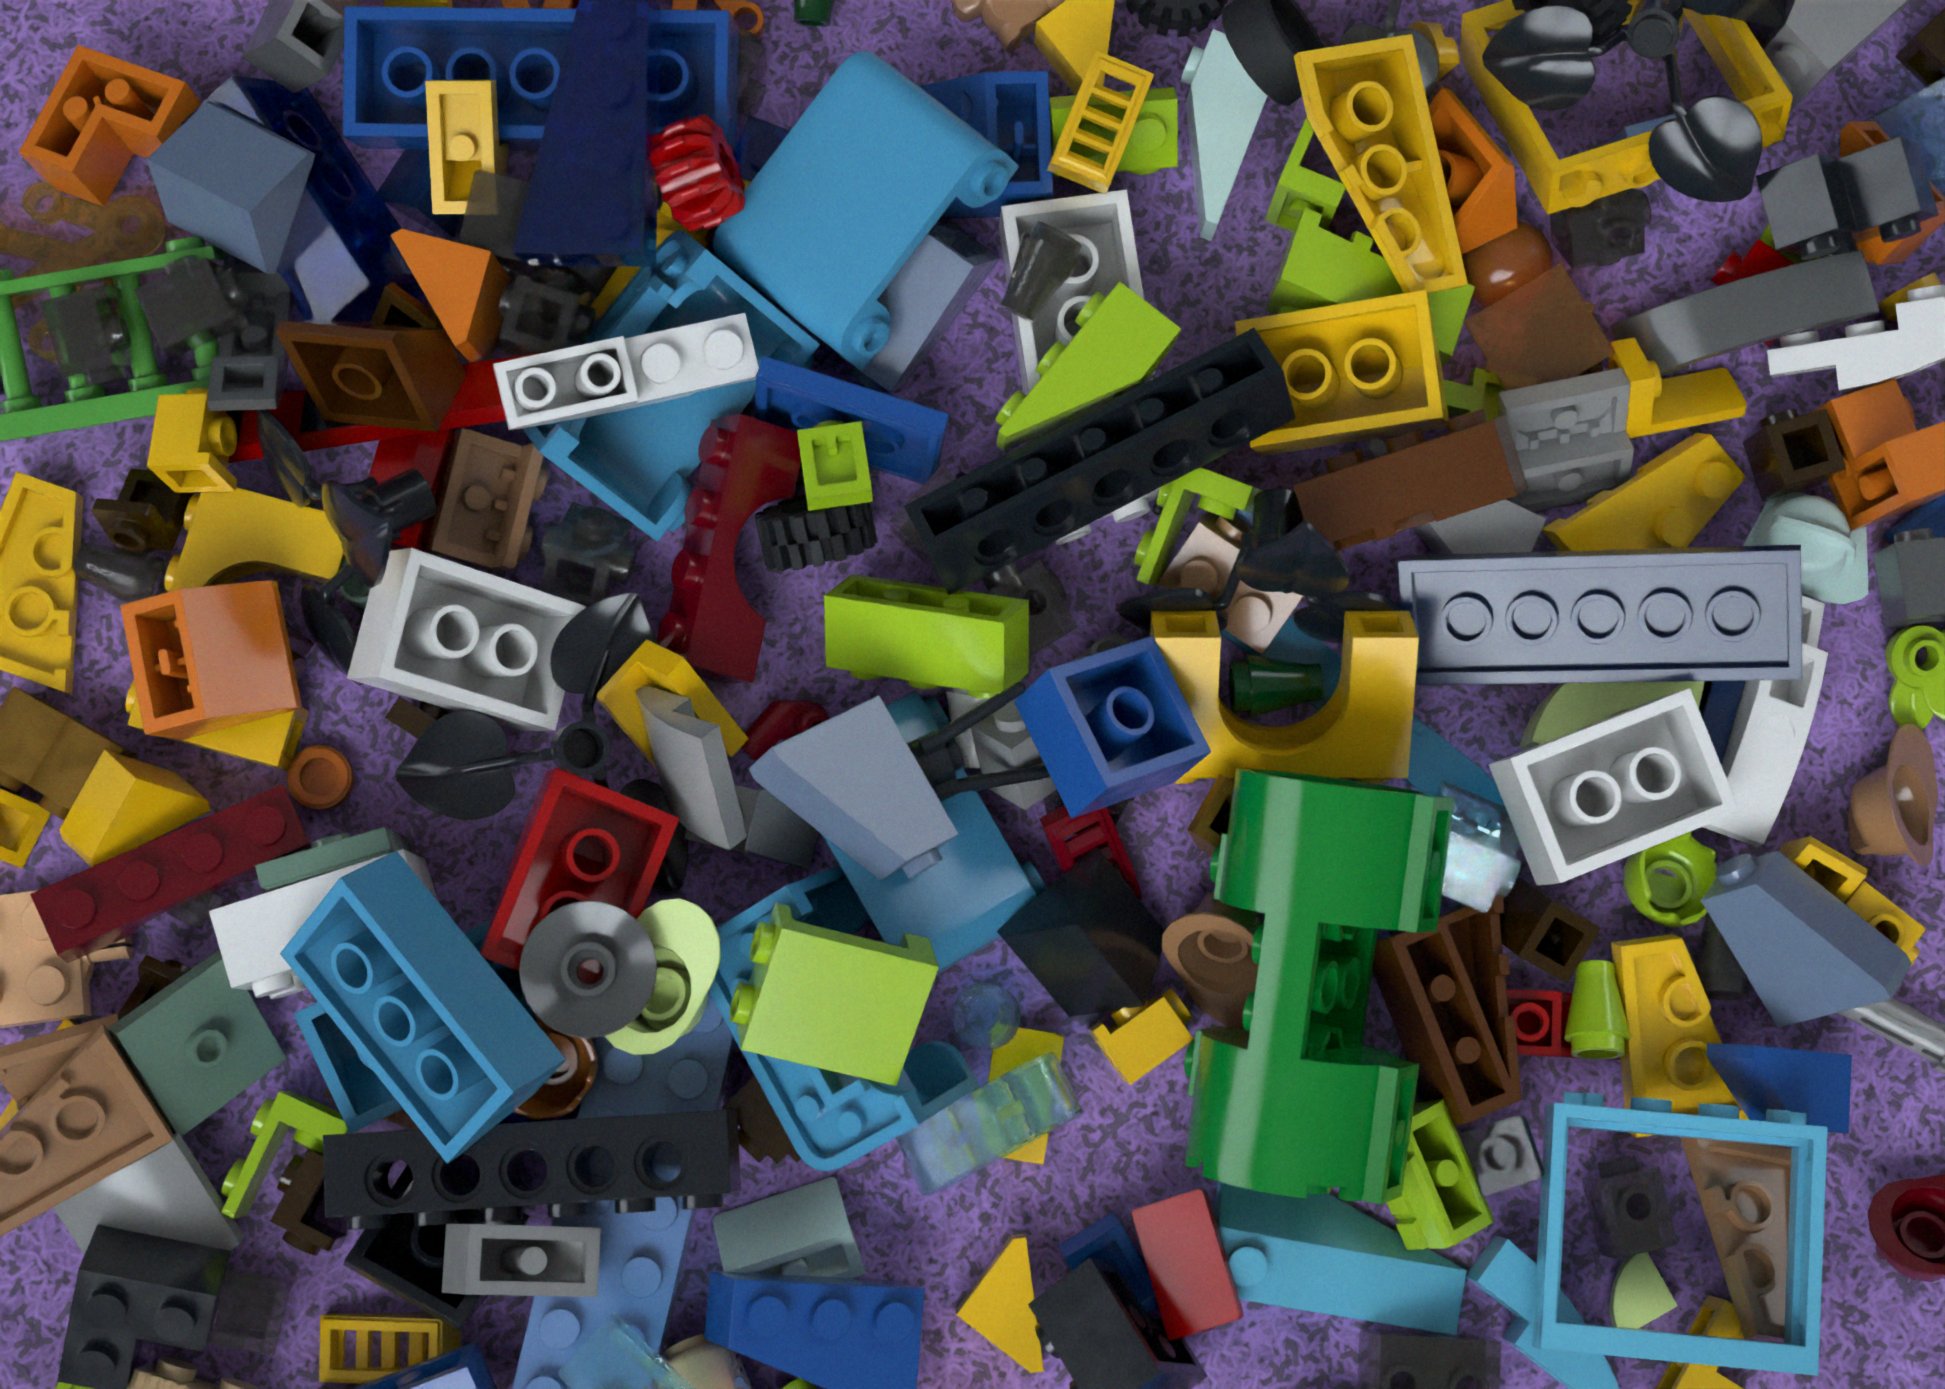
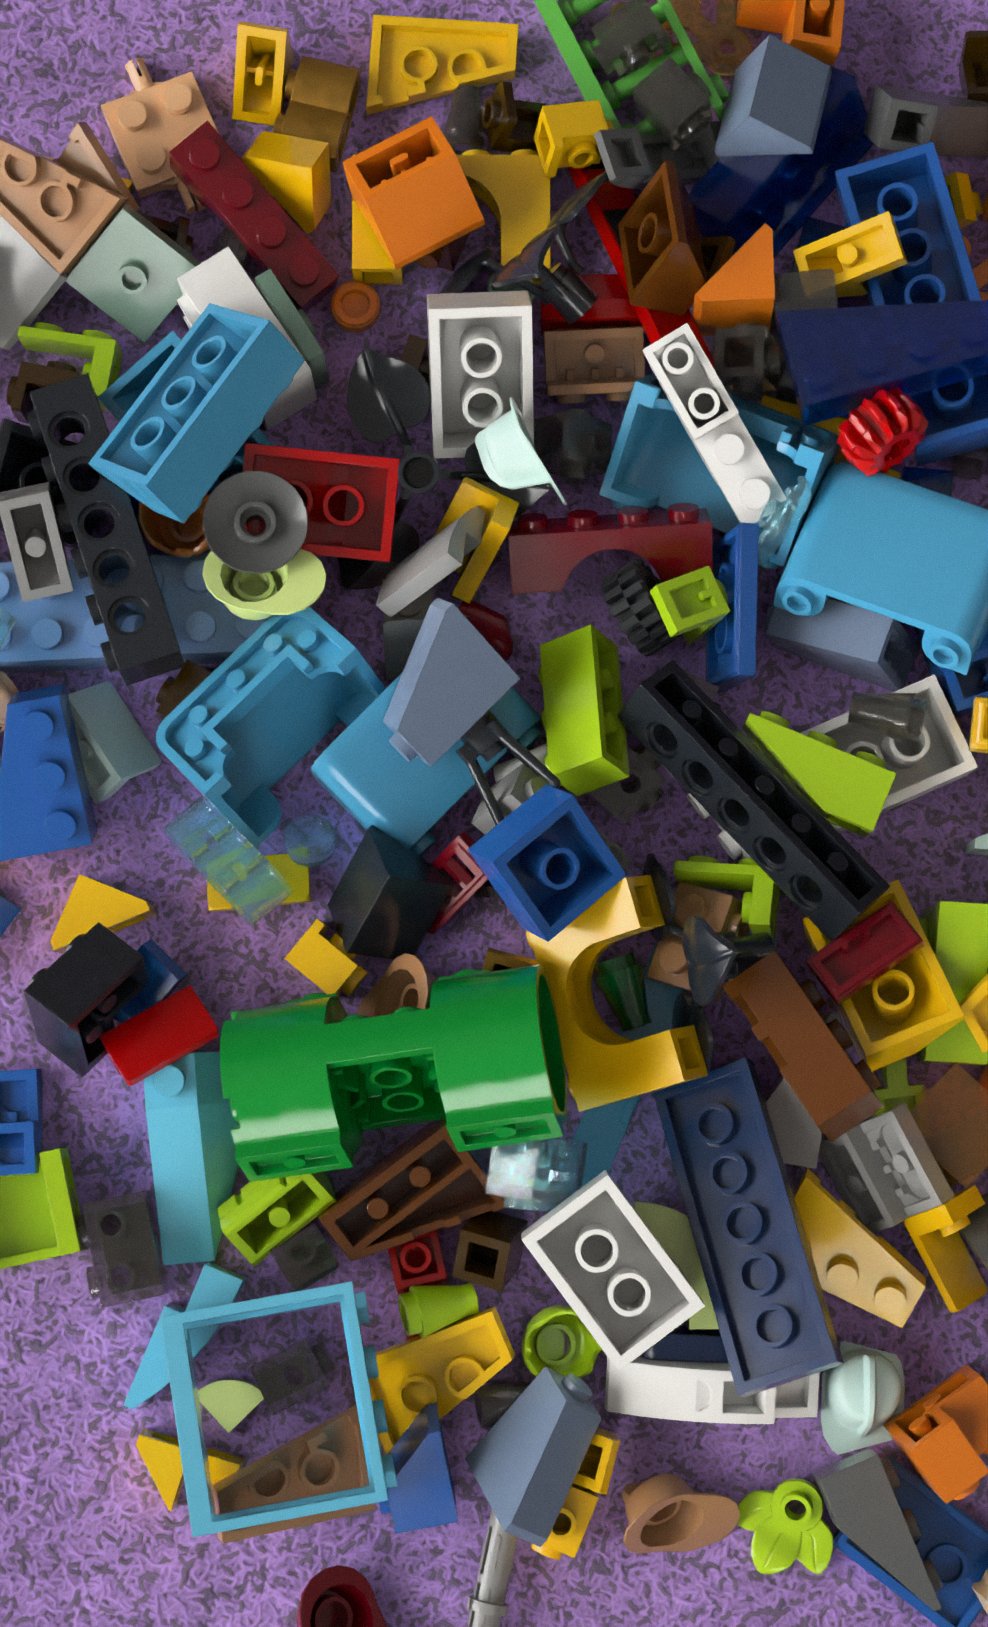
camera: 85 degrees right, 0 degrees up
(591, 630) = (510, 454): none -> light aqua piece
(762, 326) = (780, 518): none -> clear light blue piece
(833, 997) = (281, 706): lime panel -> none
(1320, 383) = (864, 953): none -> dark red plate
(1793, 453) = (930, 1358): dark brown brick -> none

